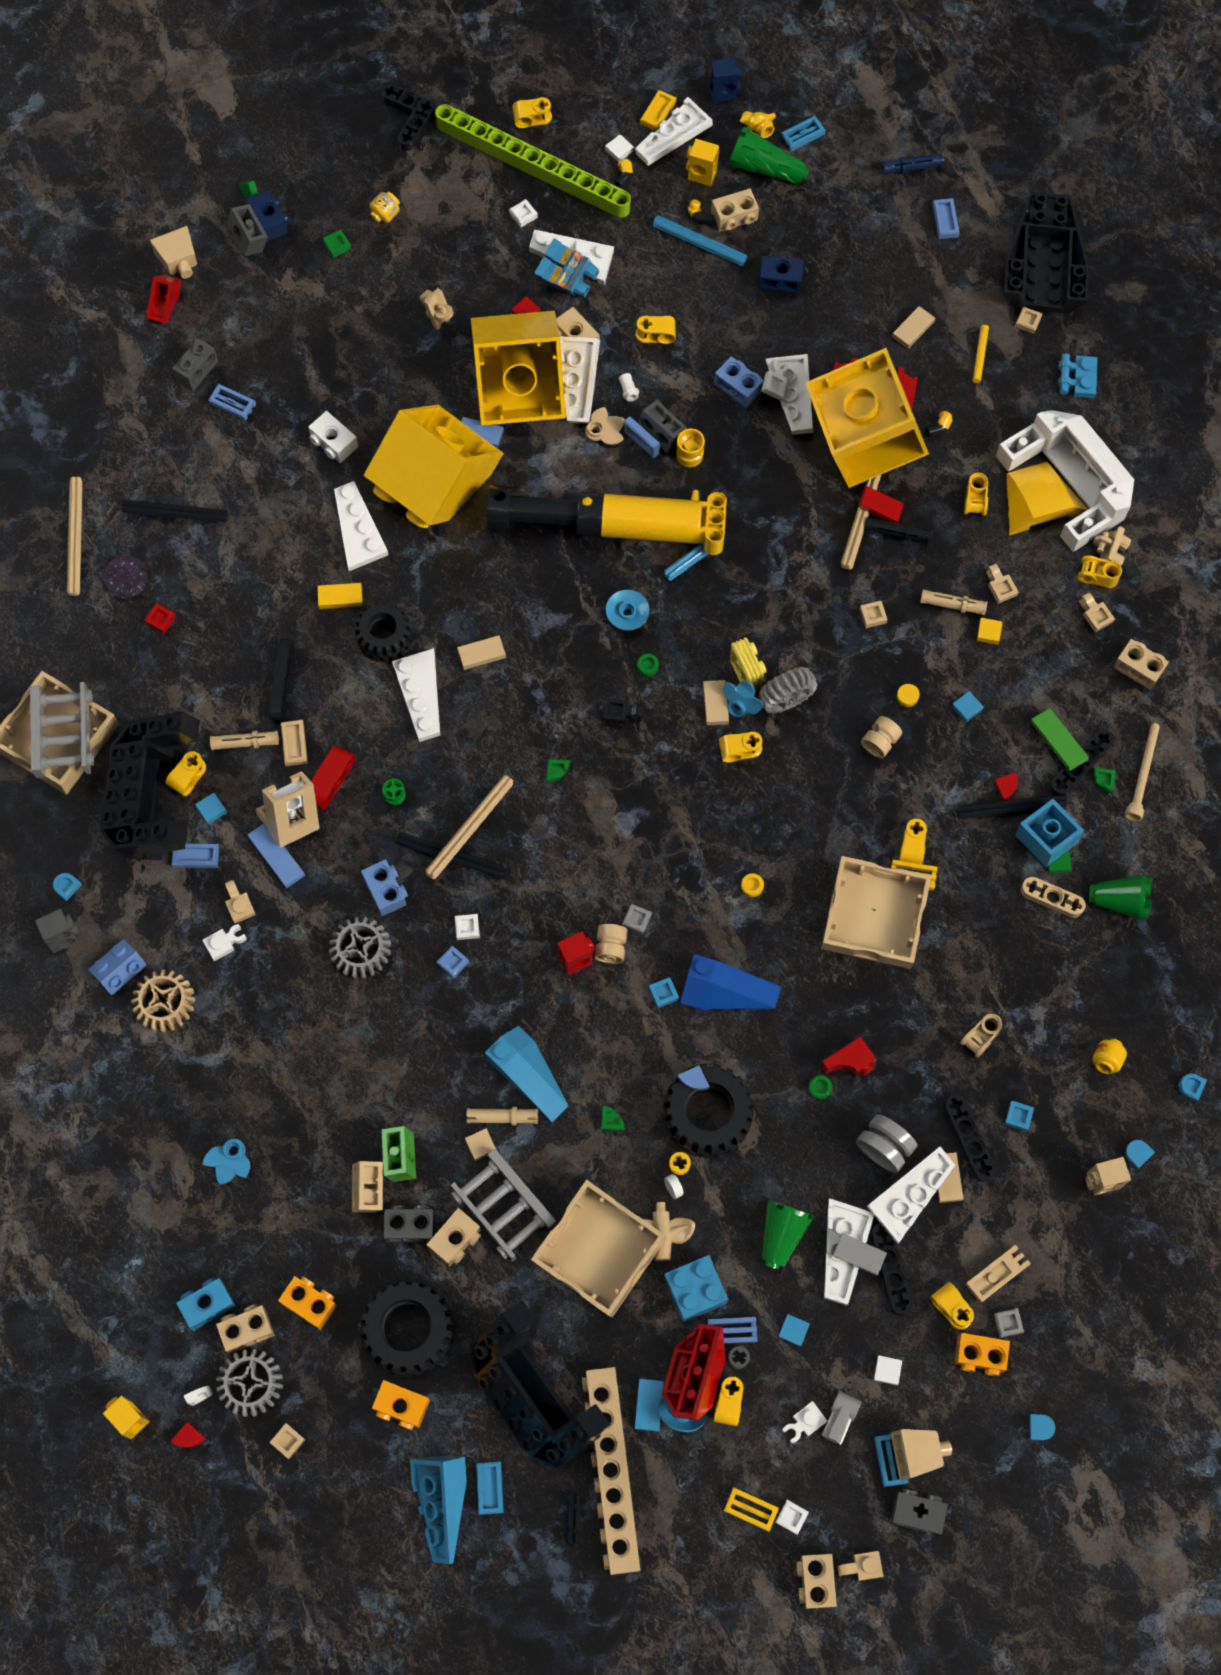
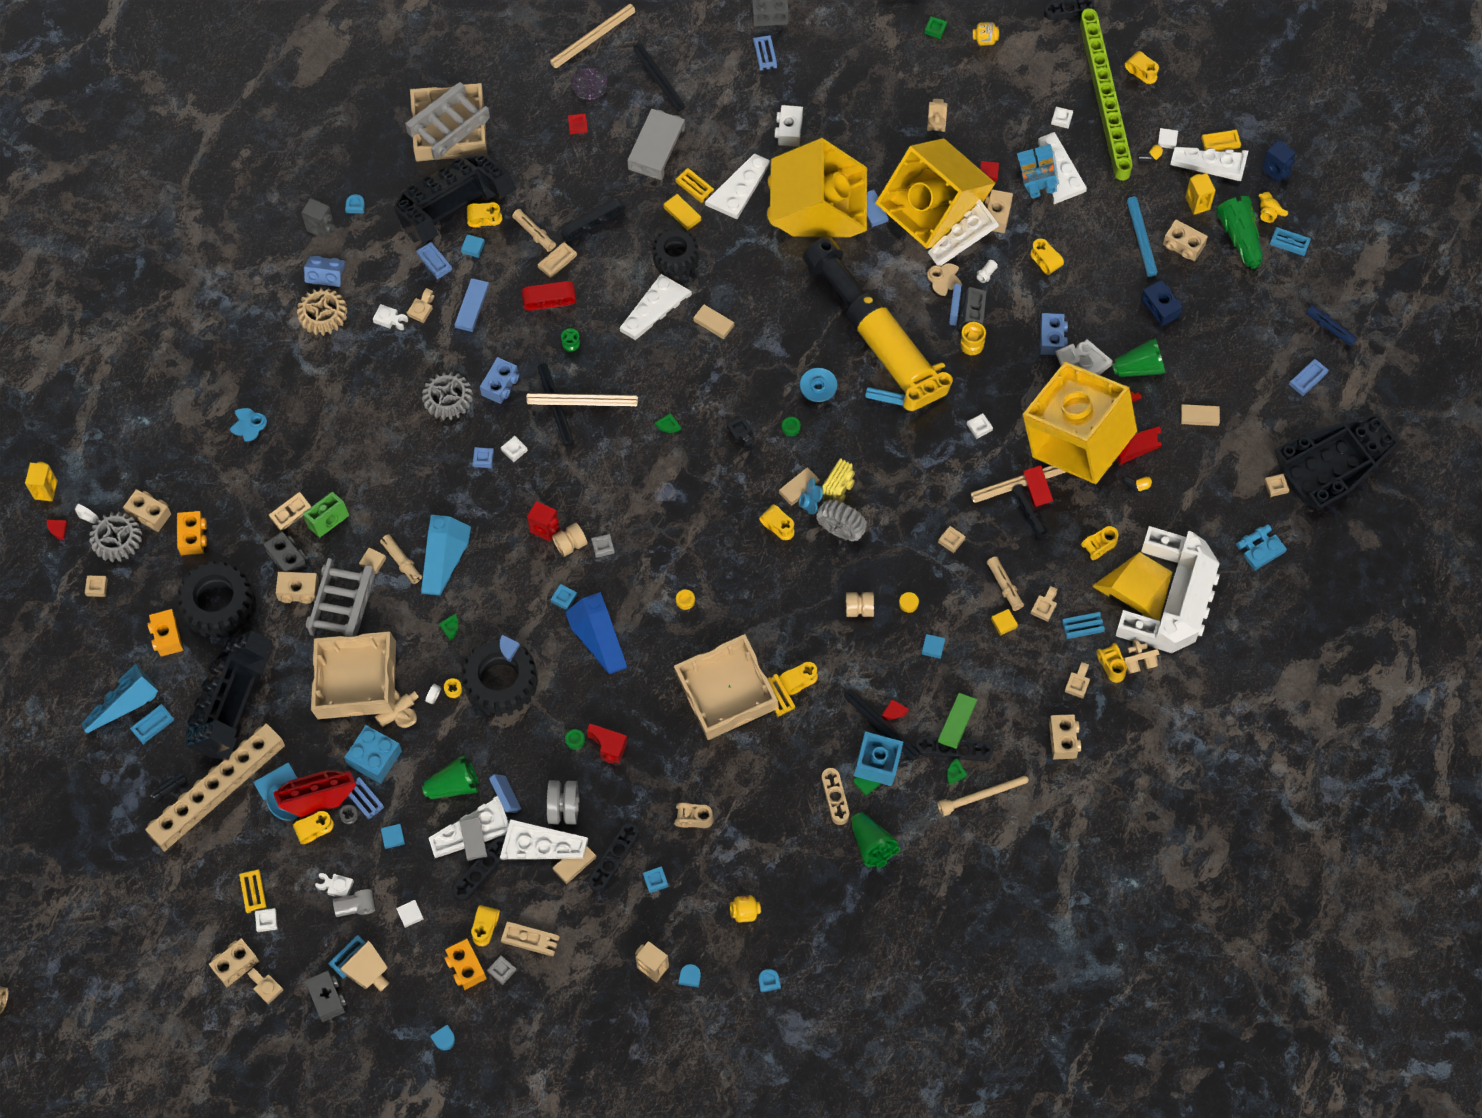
camera: 55 degrees right, 5 degrees down
(220, 1303) = (154, 483): dark azure brick -> none
(248, 564) = (655, 143): none -> light grey panel
(289, 810) = (501, 286): tan brick -> none
(314, 570) = (704, 194): none -> yellow tile
(697, 214) = (1161, 220): arm -> none
(778, 508) = (979, 426): none -> white tile
(827, 330) = (1140, 361): none -> green cone
(831, 1191) = (505, 793): none -> medium blue tile
(980, 353) = (1219, 472): yellow bar -> none
(1049, 555) = (1082, 618): none -> dark azure tile

